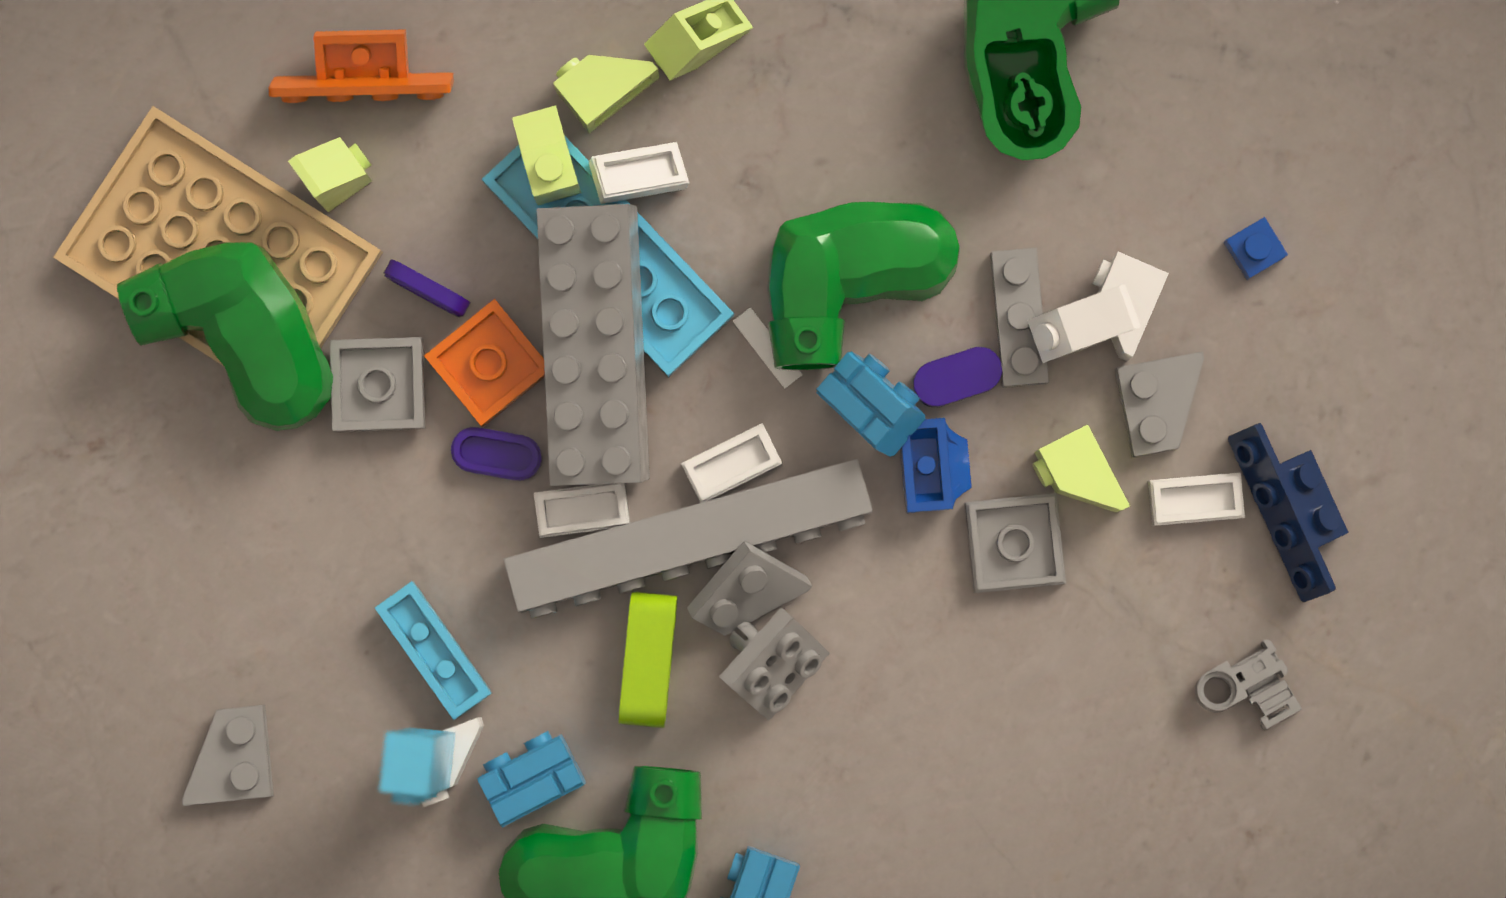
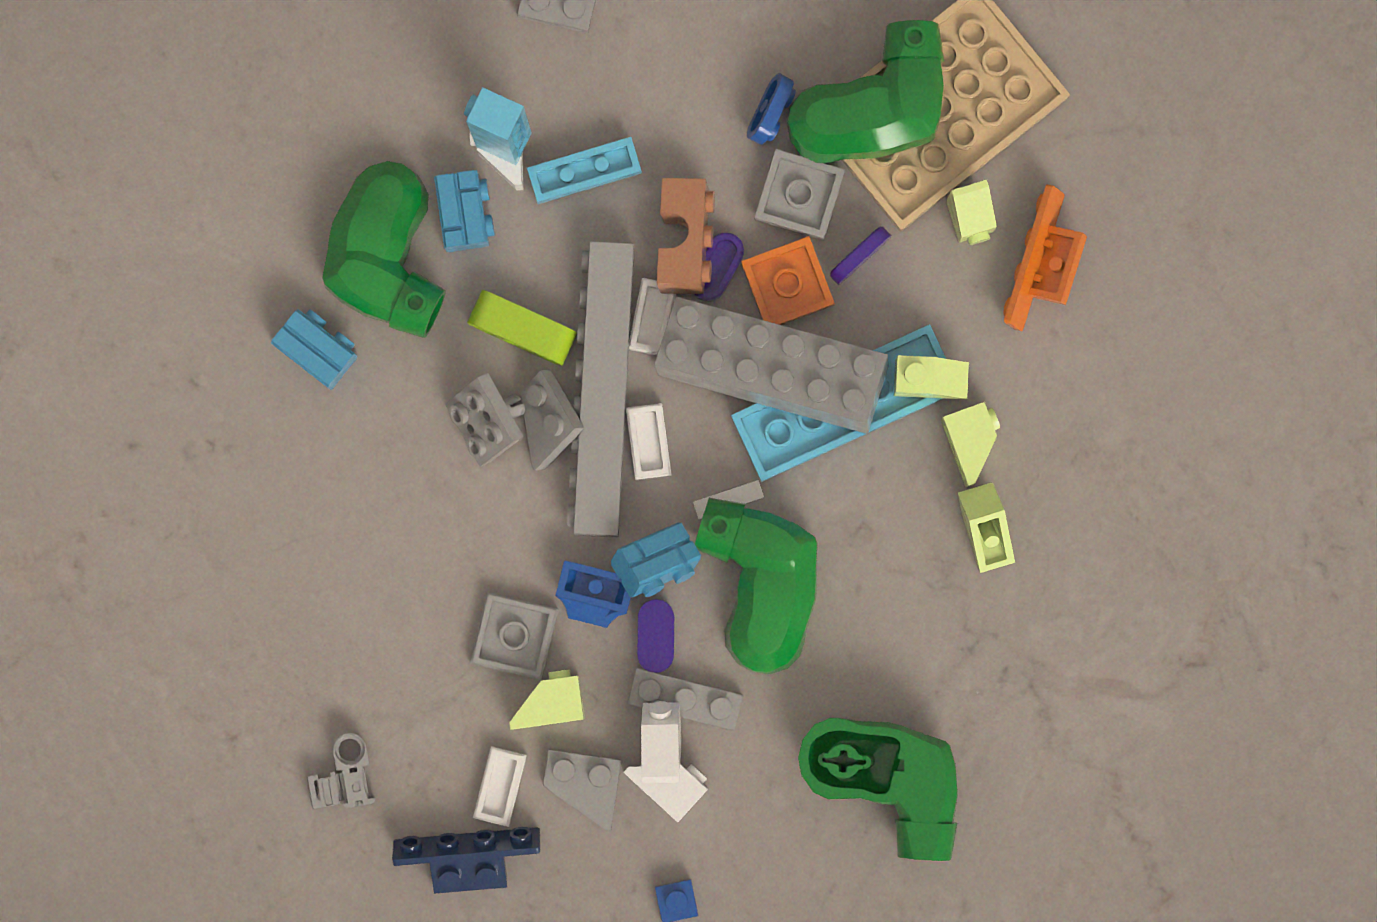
camera: 115 degrees right, 0 degrees up
(282, 453) = (776, 97): none -> blue plate
(434, 512) = (685, 266): none -> nougat arch
(638, 172) = (894, 445): white tile -> none

